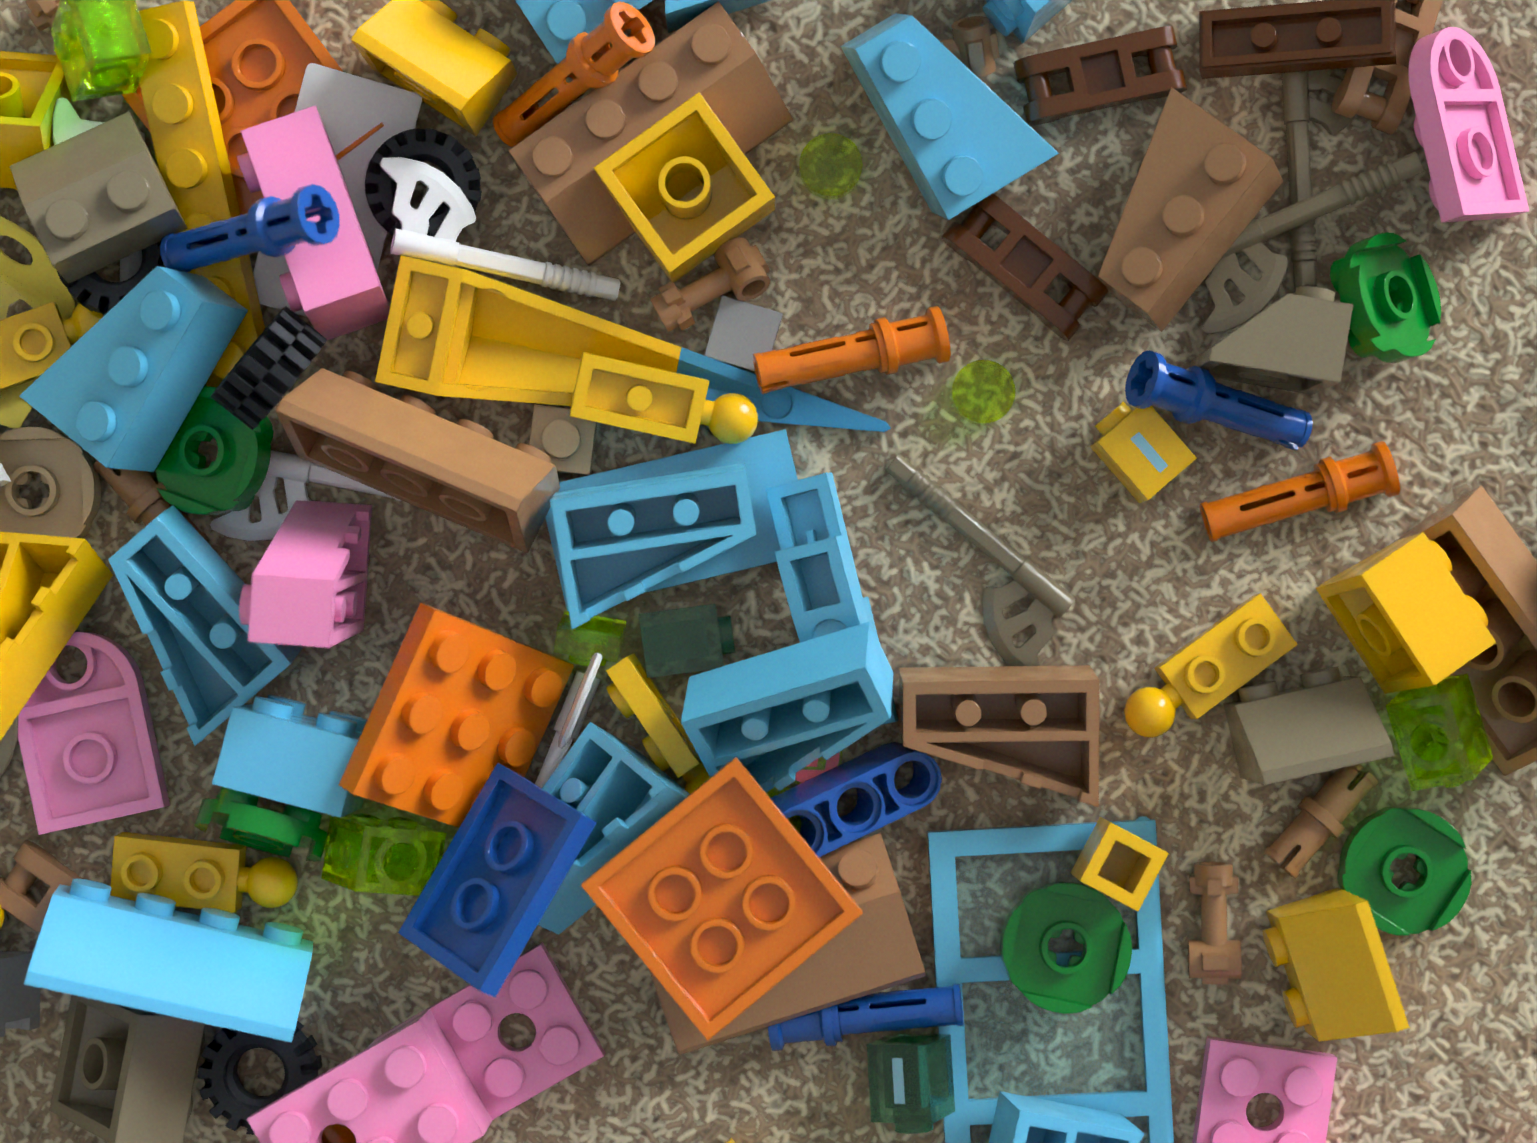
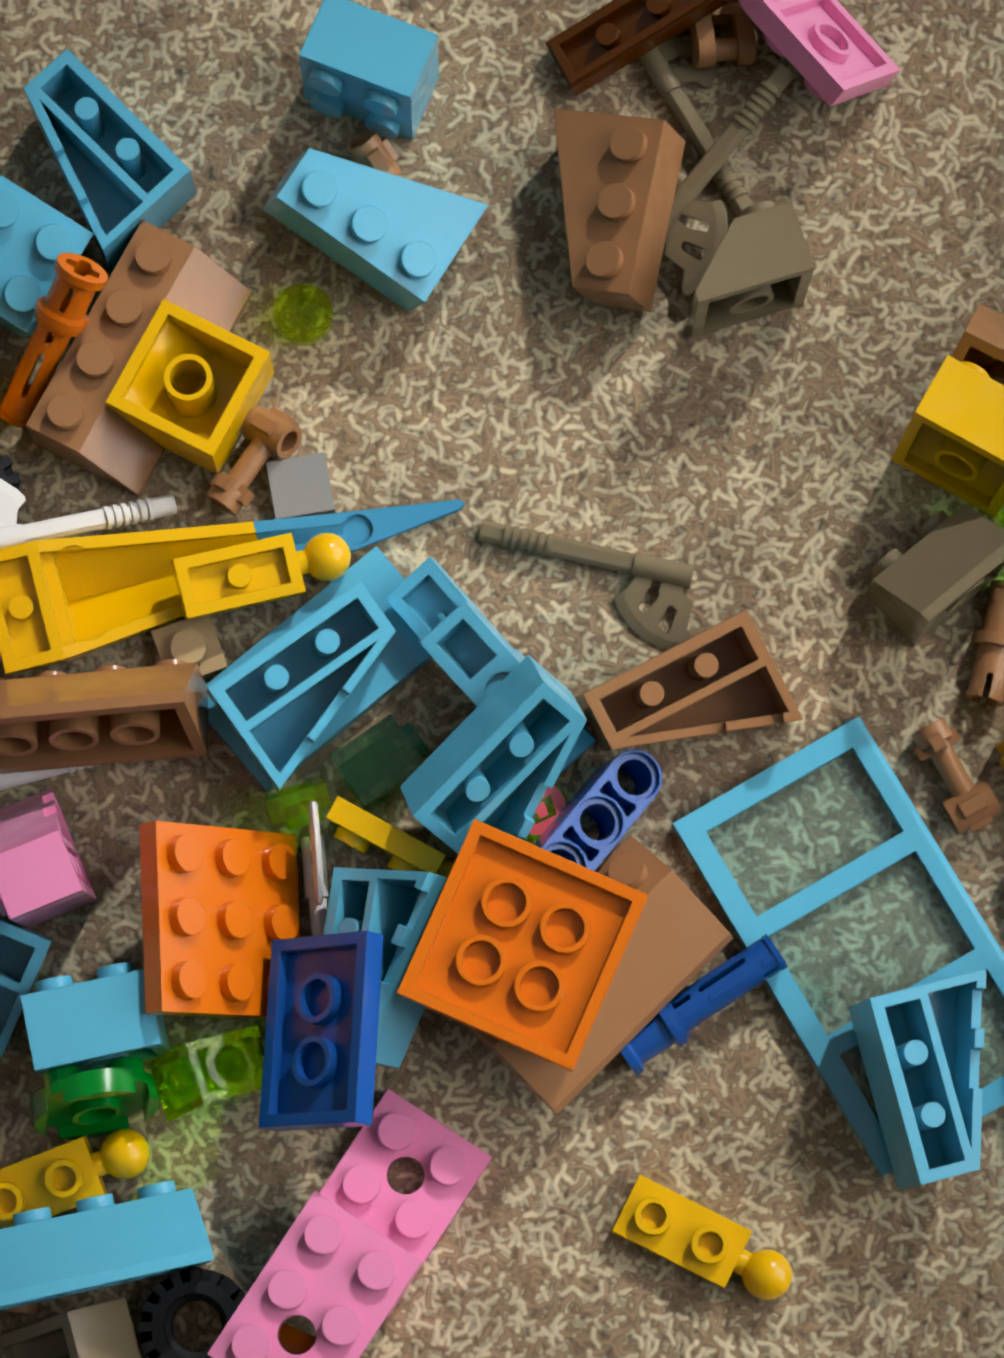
camera: 30 degrees left, 10 degrees down
(880, 348) = (421, 438): orange pin -> none
(910, 1080) = (768, 1038): clear green brick -> none
(983, 392) = (527, 435): clear neon green tile -> none
(1026, 265) = (508, 313): reddish brown plate -> none
(1085, 978) = (856, 825): green plate -> none
(1099, 75) = (489, 131): reddish brown plate -> none
(1119, 864) = (845, 757): yellow brick -> none
(1140, 450) = (683, 414): yellow brick -> none
(1195, 396) = (705, 344): blue pin -> none
(1210, 667) = (837, 566): yellow plate -> none
(1328, 486) = (855, 368): orange pin -> none
(1380, 325) = (825, 189): green plate -> none

